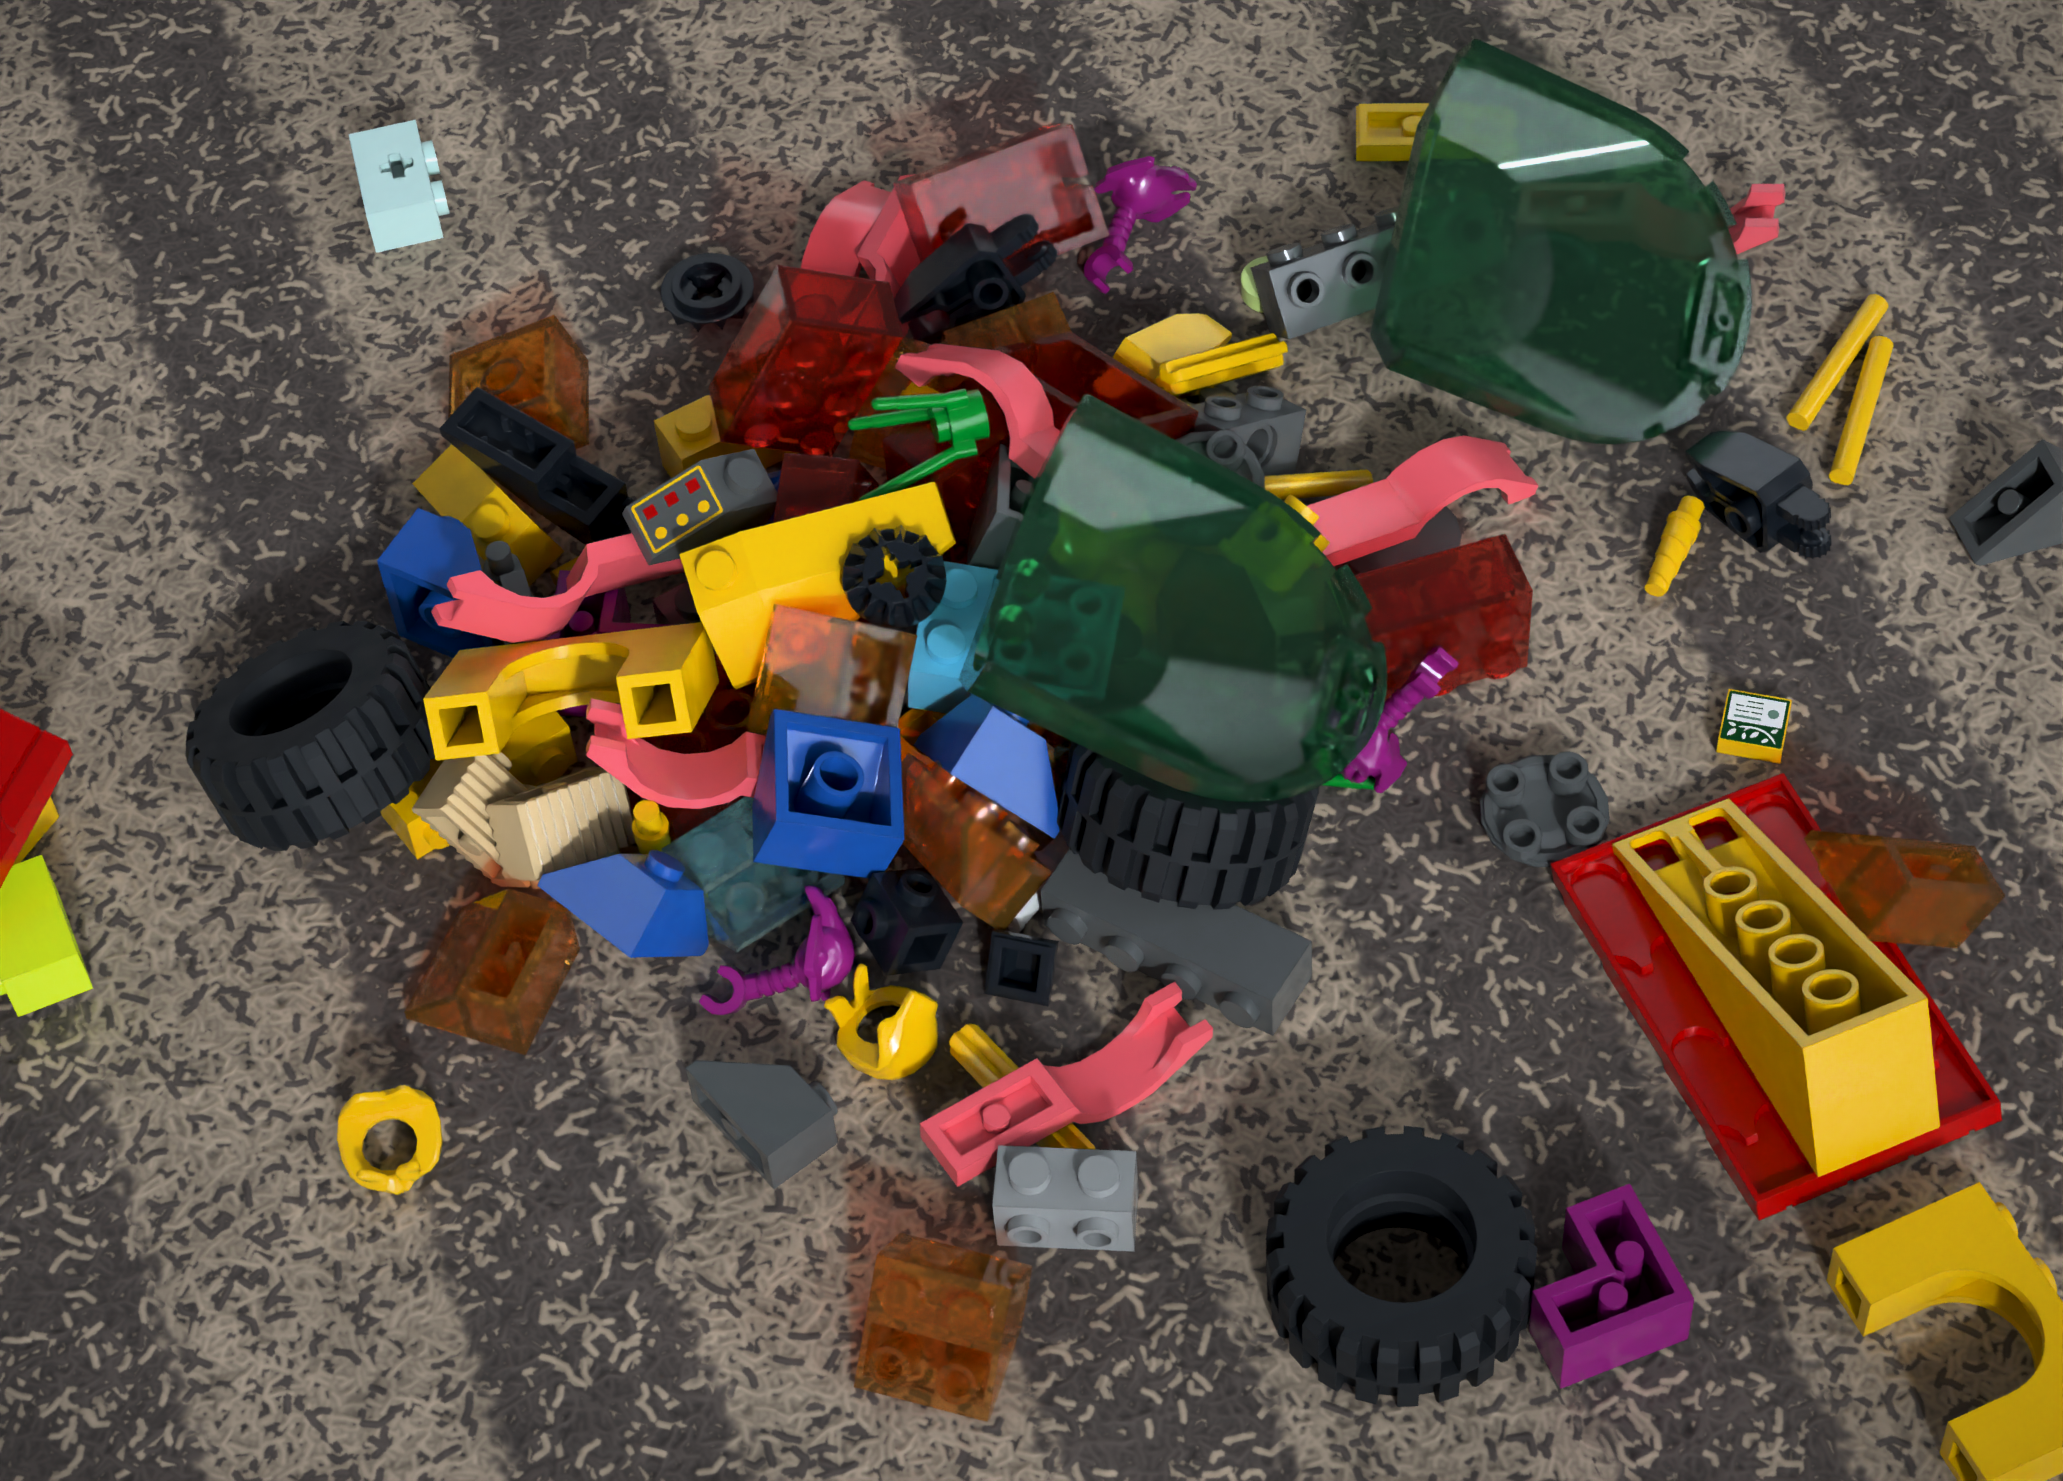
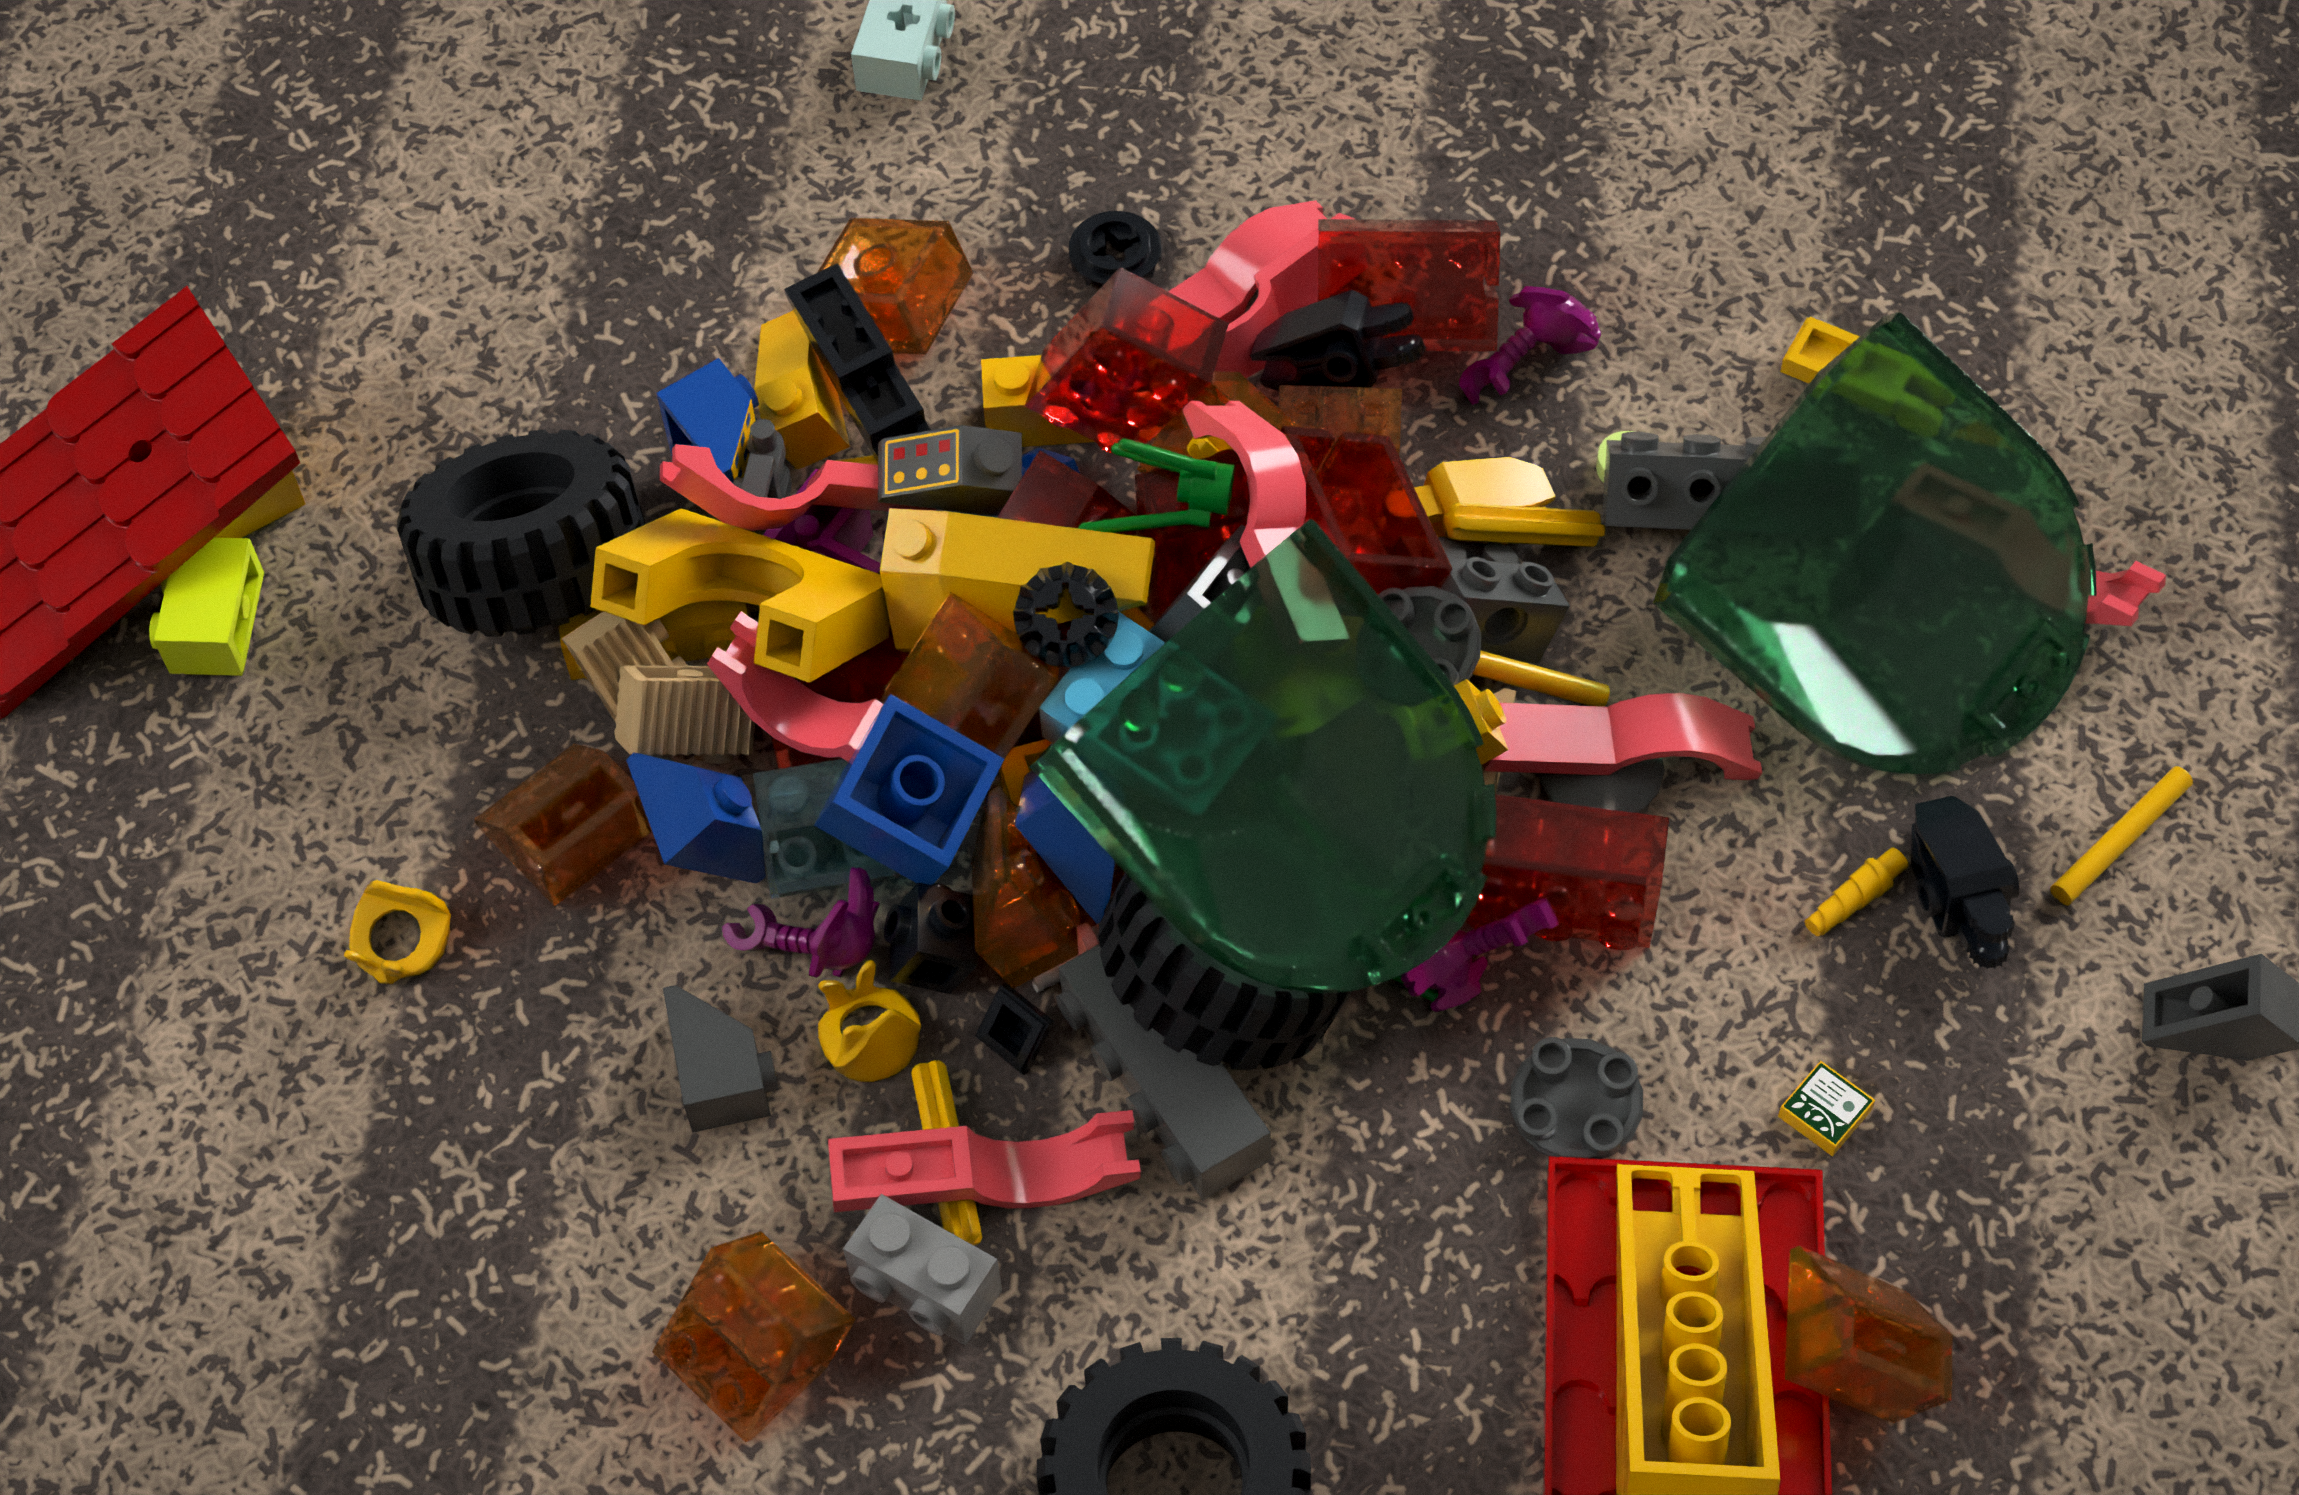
camera: 25 degrees right, 5 degrees up
(650, 827) = (754, 751): yellow animal -> none
(1837, 362) = (2127, 775): yellow bar -> none

